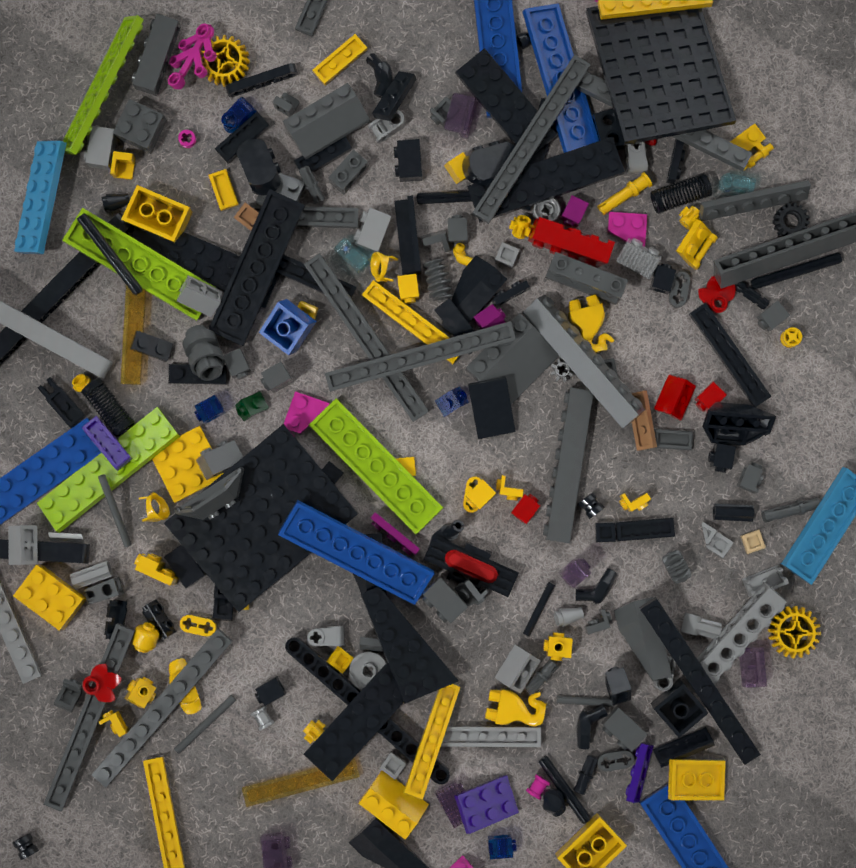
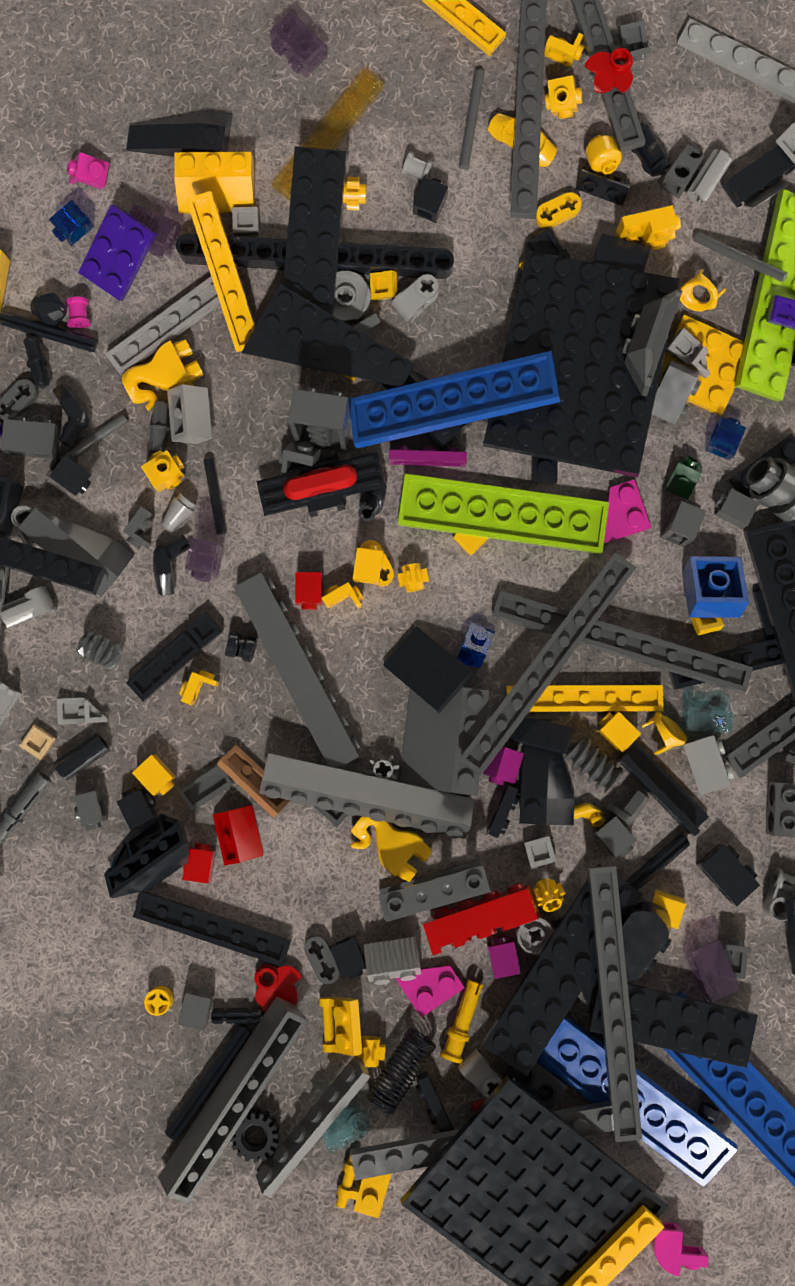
camera: 145 degrees right, 0 degrees up
(50, 597) = (734, 121): yellow brick -> none
(190, 476) = (689, 352): none -> light grey slope
(458, 468) = (413, 577): none -> yellow gear
(698, 468) = (155, 775): none -> yellow brick

